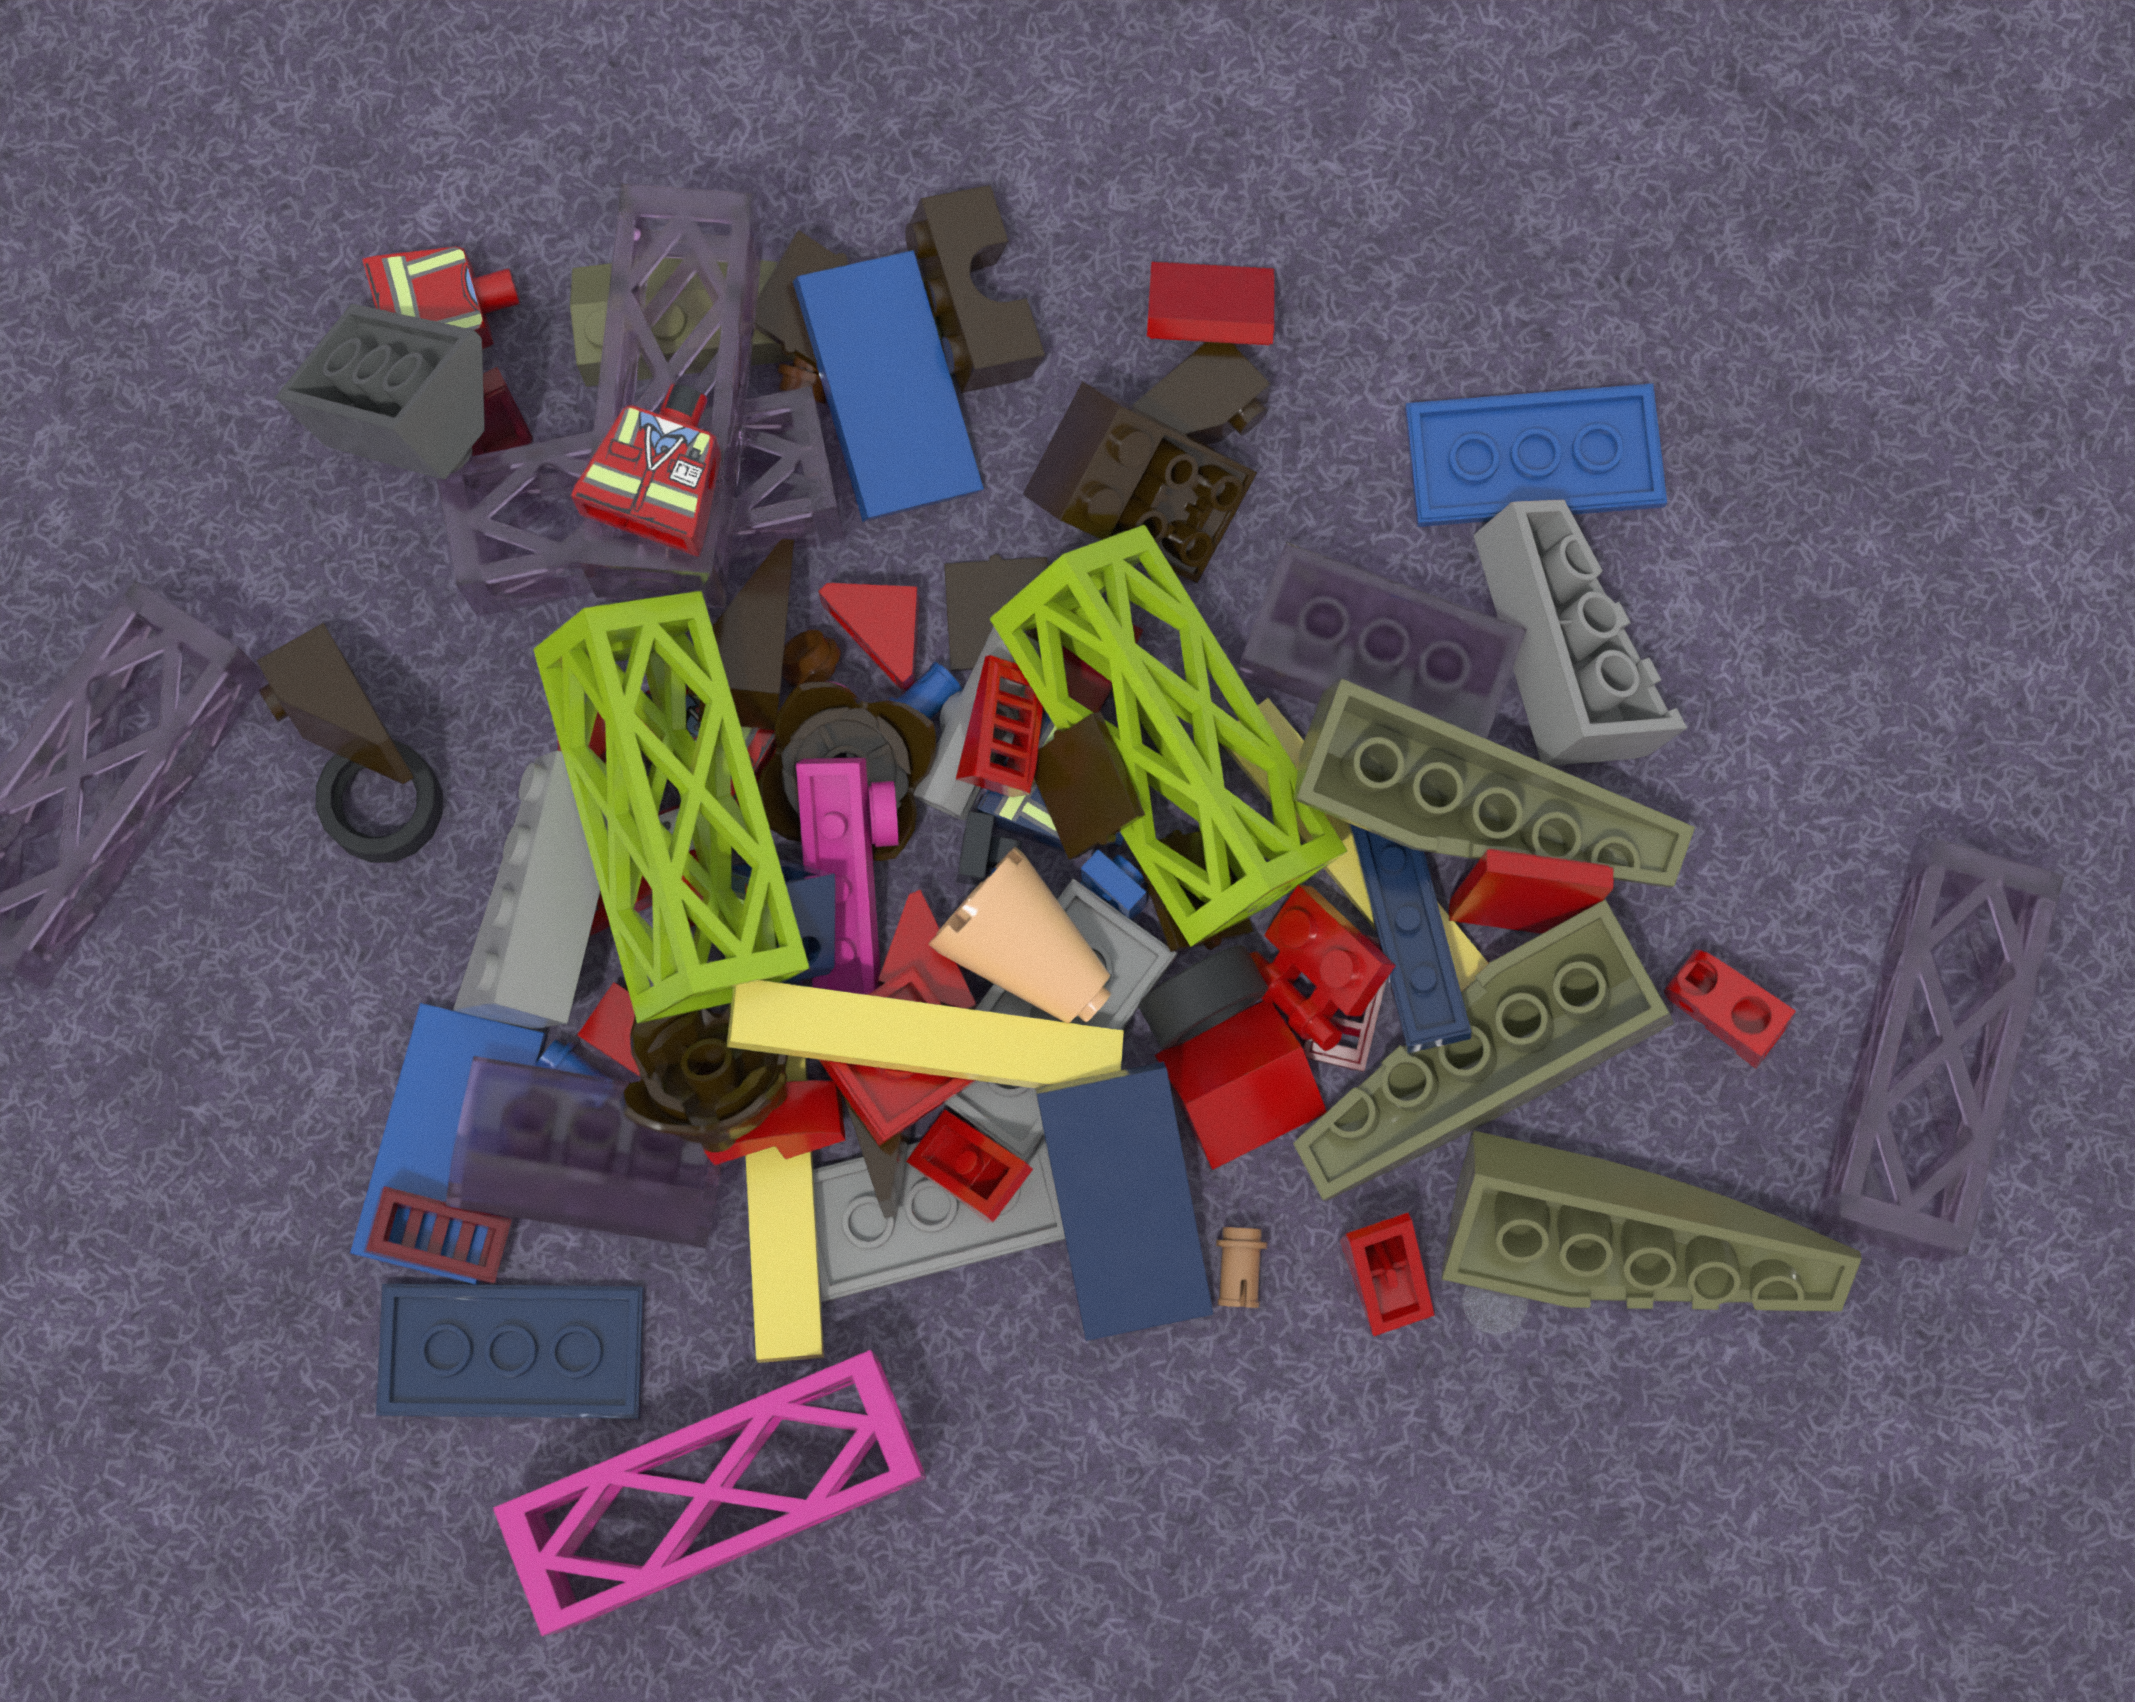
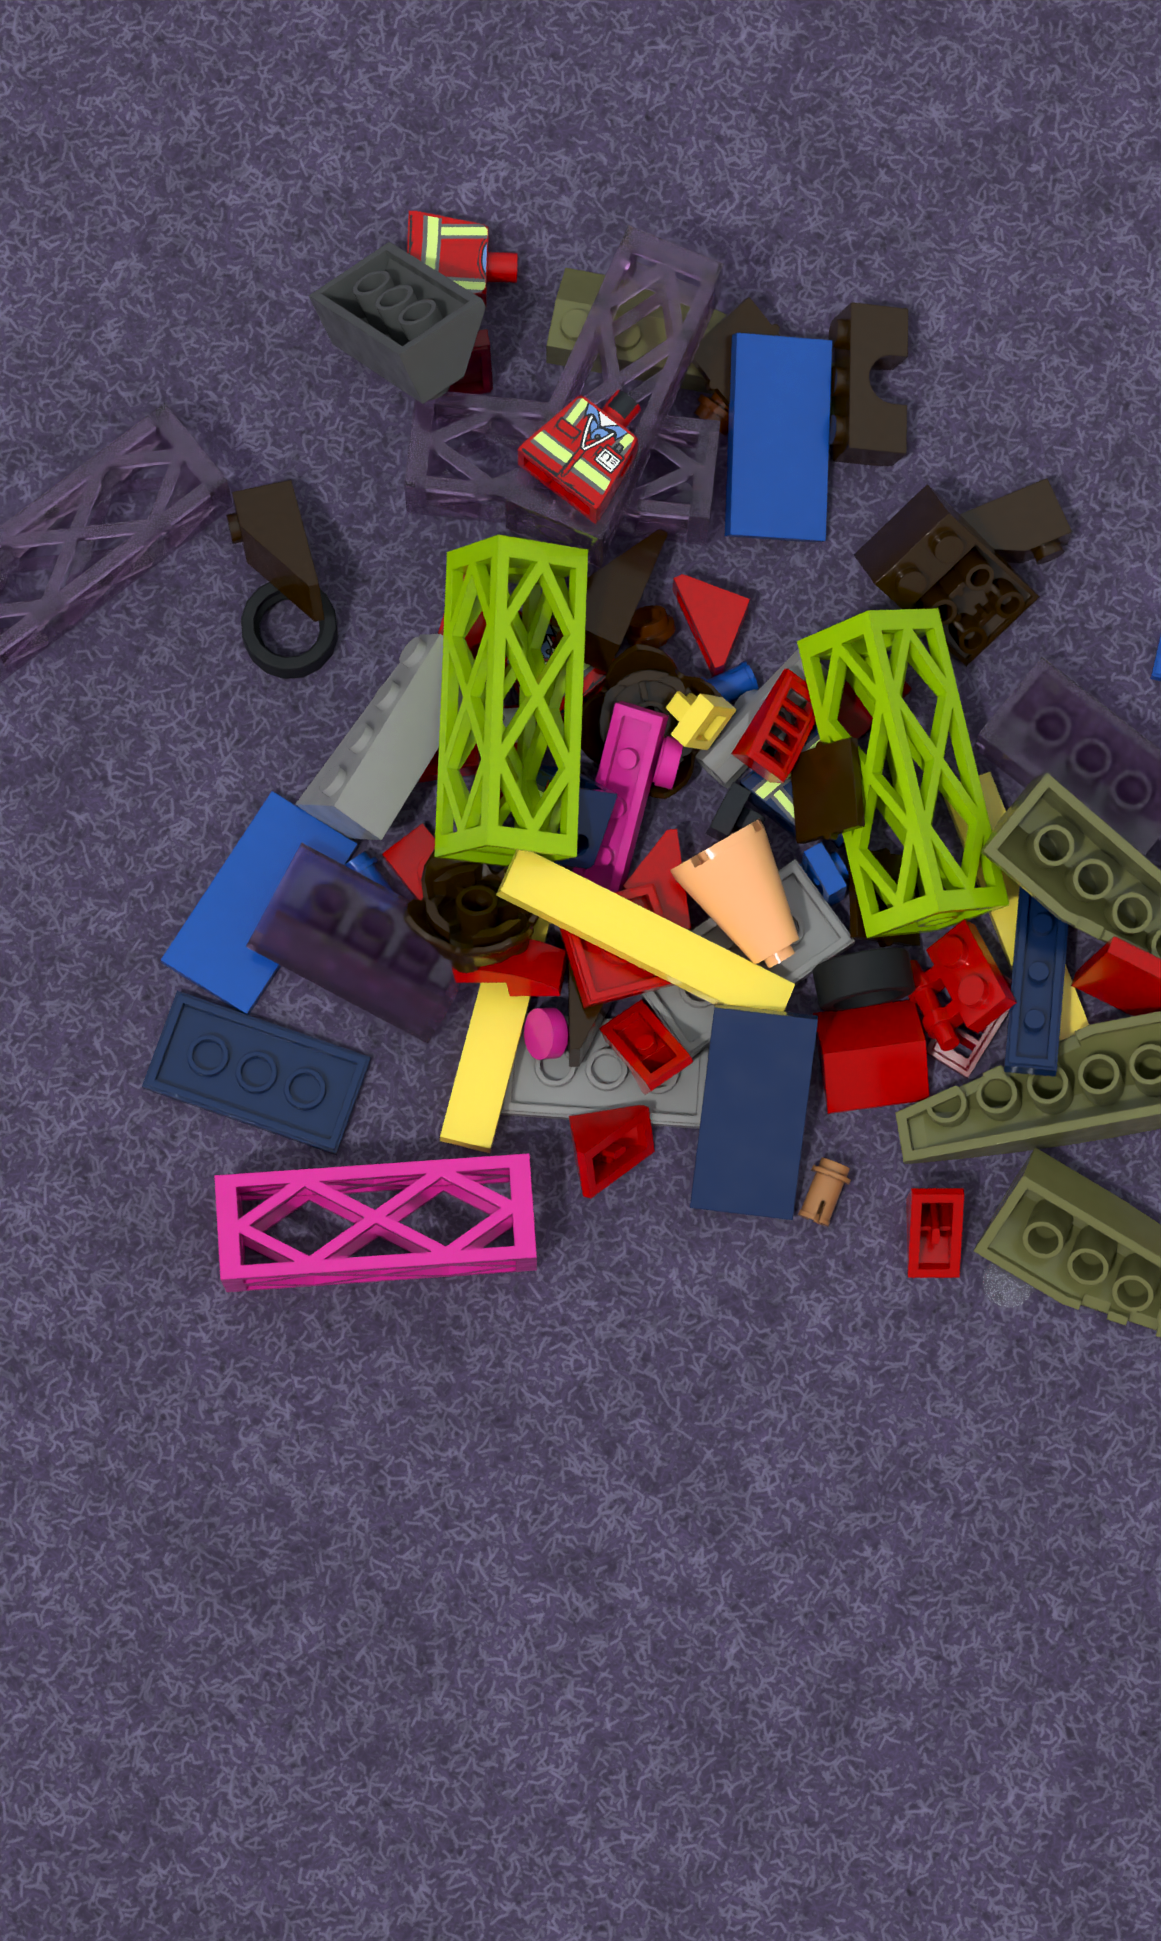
camera: 15 degrees right, 0 degrees up
(383, 1220) = (203, 971): dark red slope -> none
(844, 1189) = (546, 1033): none -> dark pink tile
(903, 749) = (699, 718): none -> light yellow tile
(964, 1299) = (609, 1145): none -> red slope
(975, 595) = (792, 619): dark brown piece -> none
(1211, 303) = (1047, 454): red tile -> none

